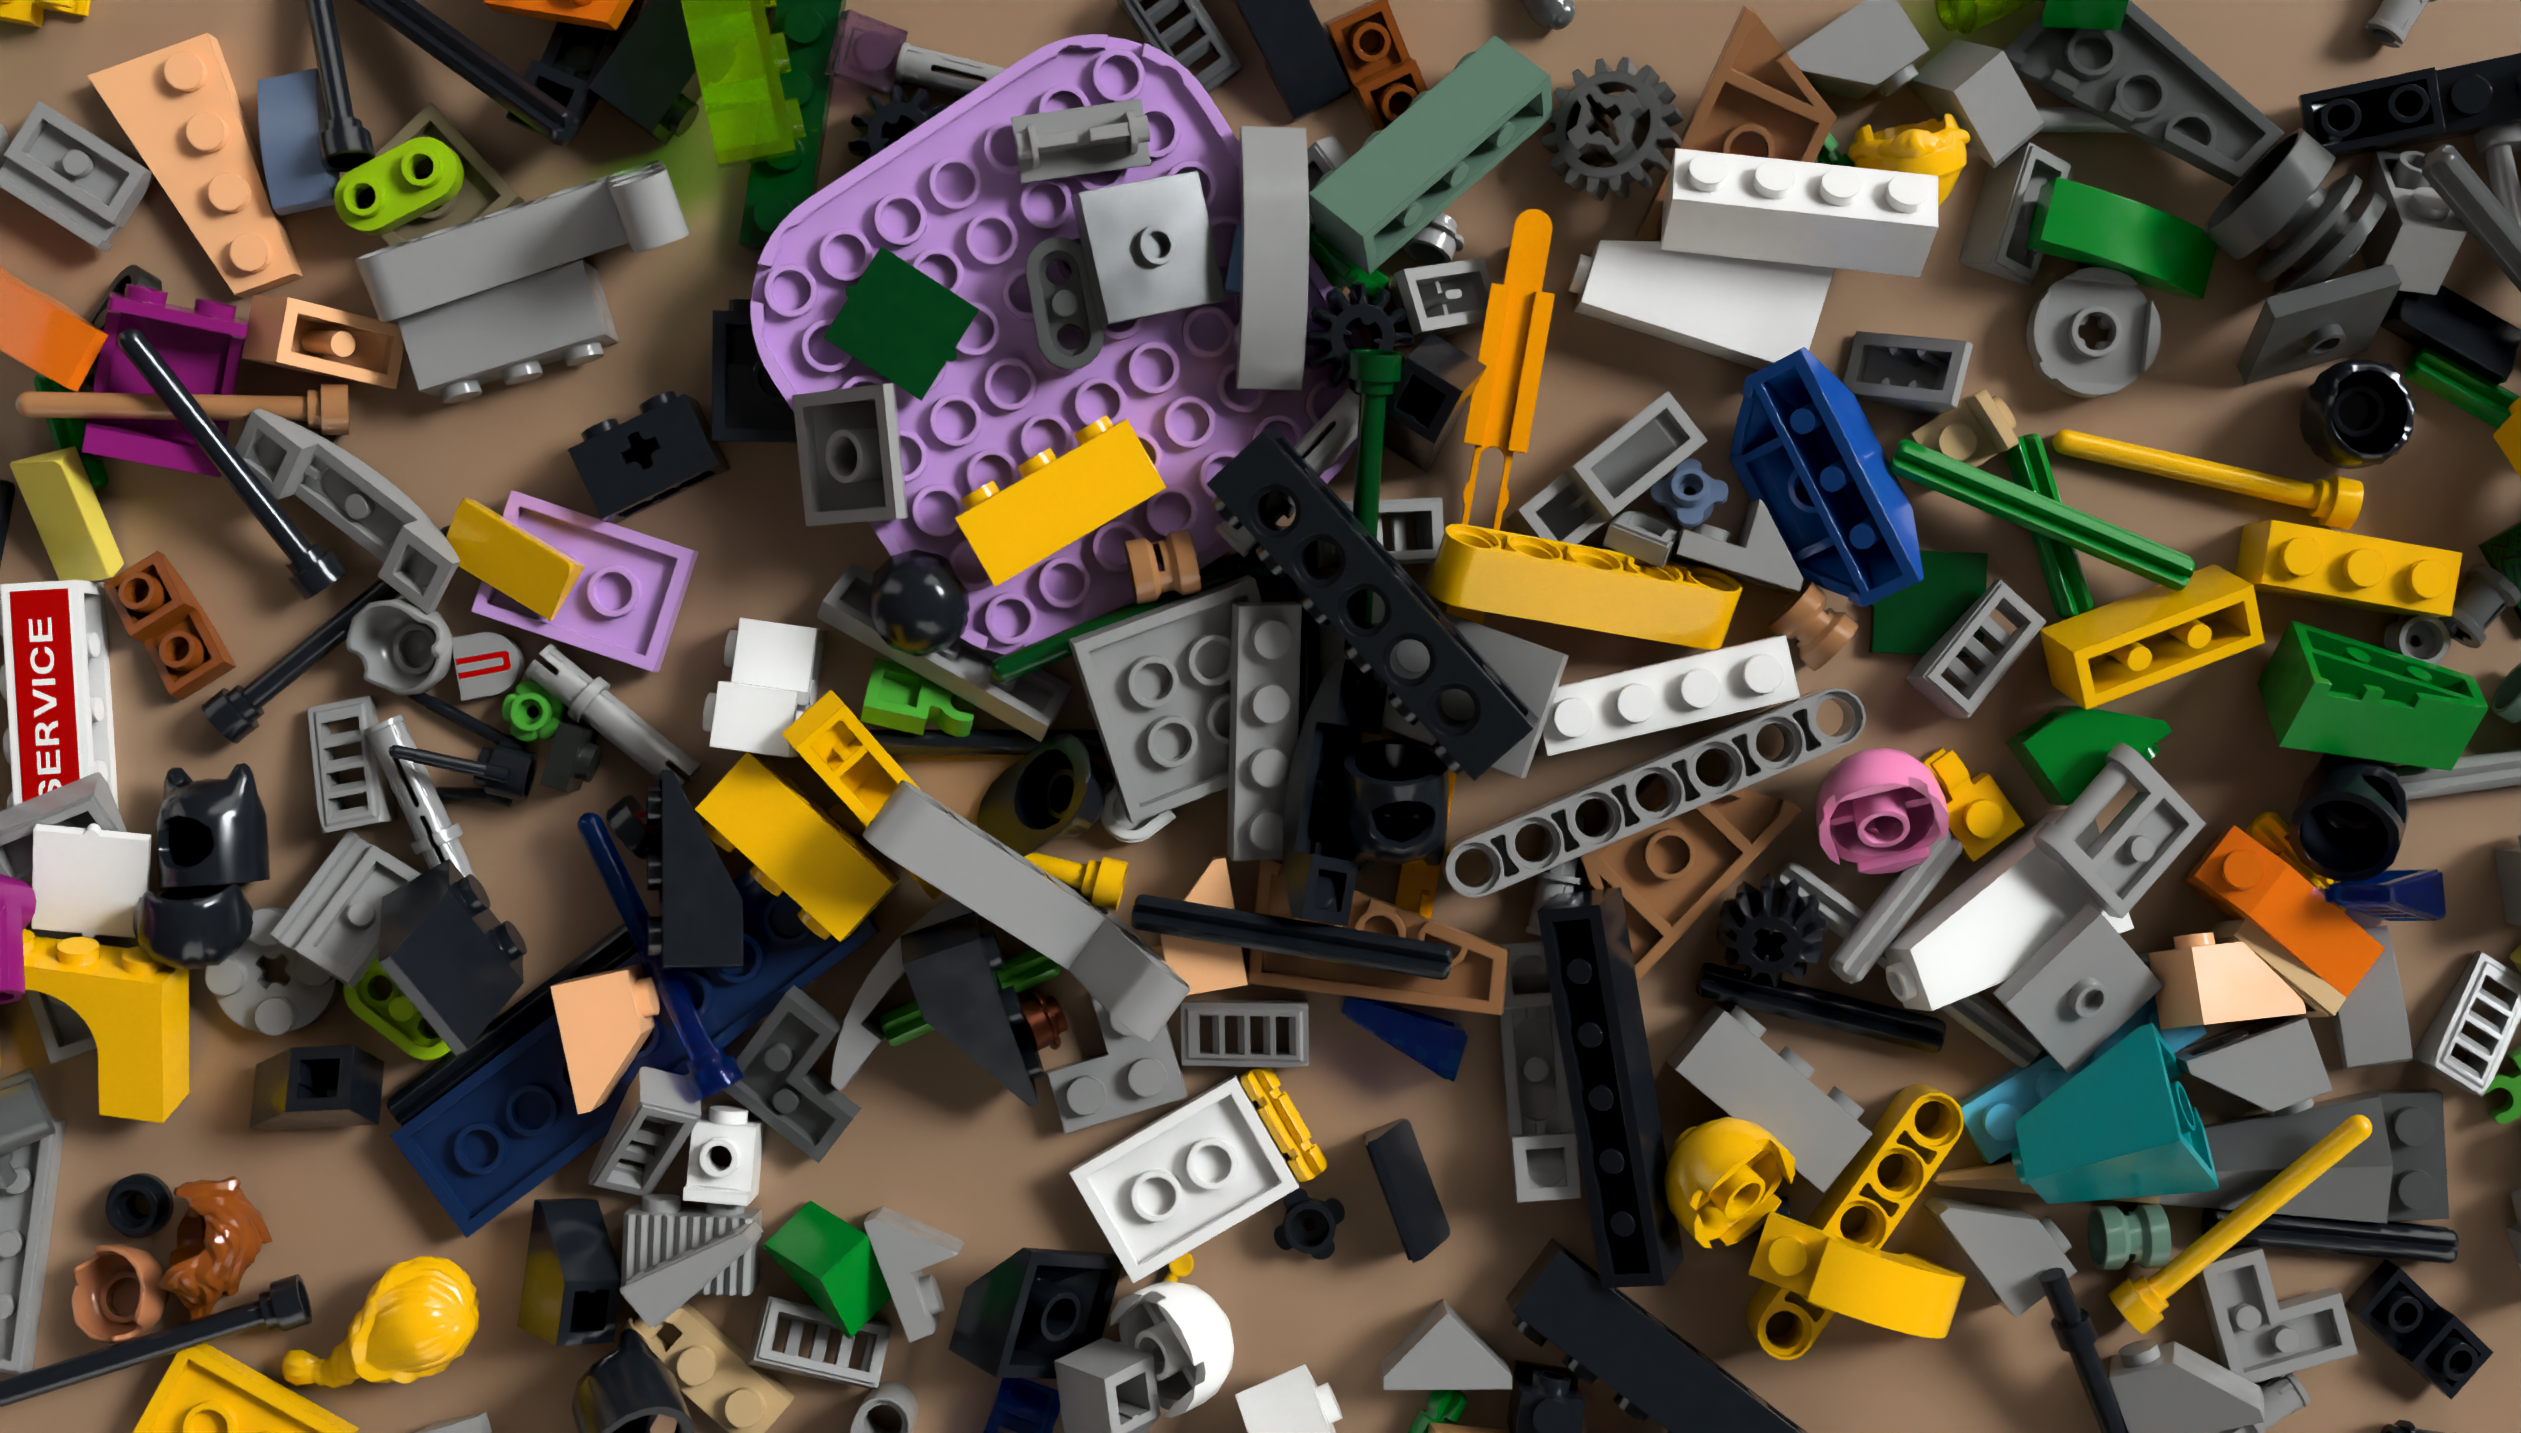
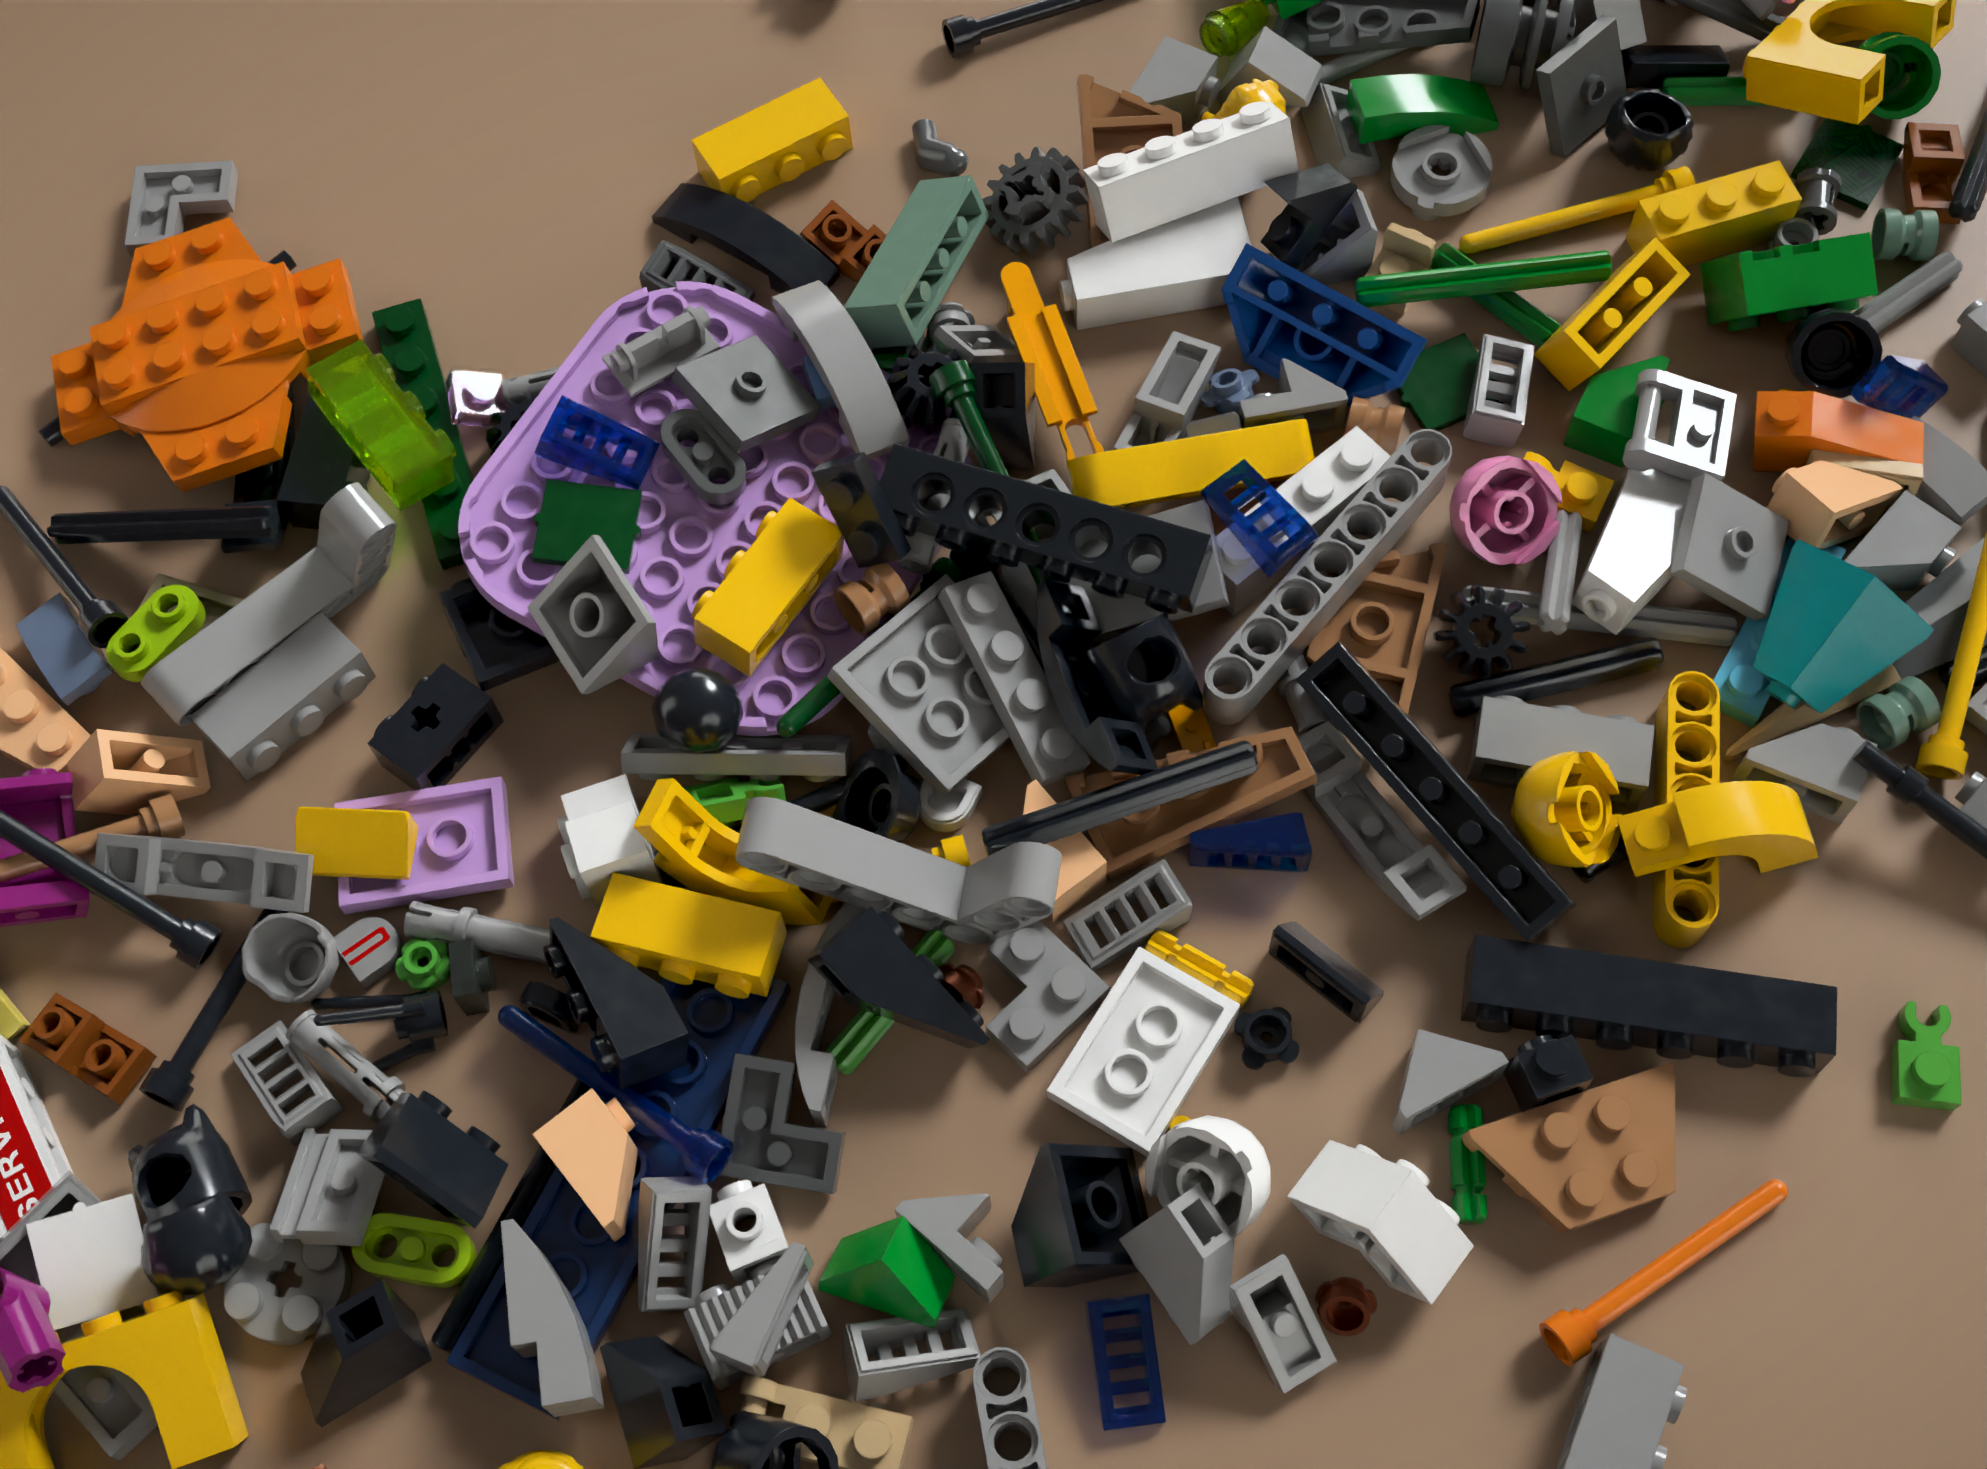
camera: 20 degrees left, 25 degrees down
(493, 1164) = (548, 1326): none -> light grey slope
(913, 189) = (588, 422): none -> clear blue slope
(1189, 486) = (861, 510): none -> black plate
(1622, 760) = (1257, 543): none -> clear blue slope
(1904, 322) = (1313, 203): none -> black slope

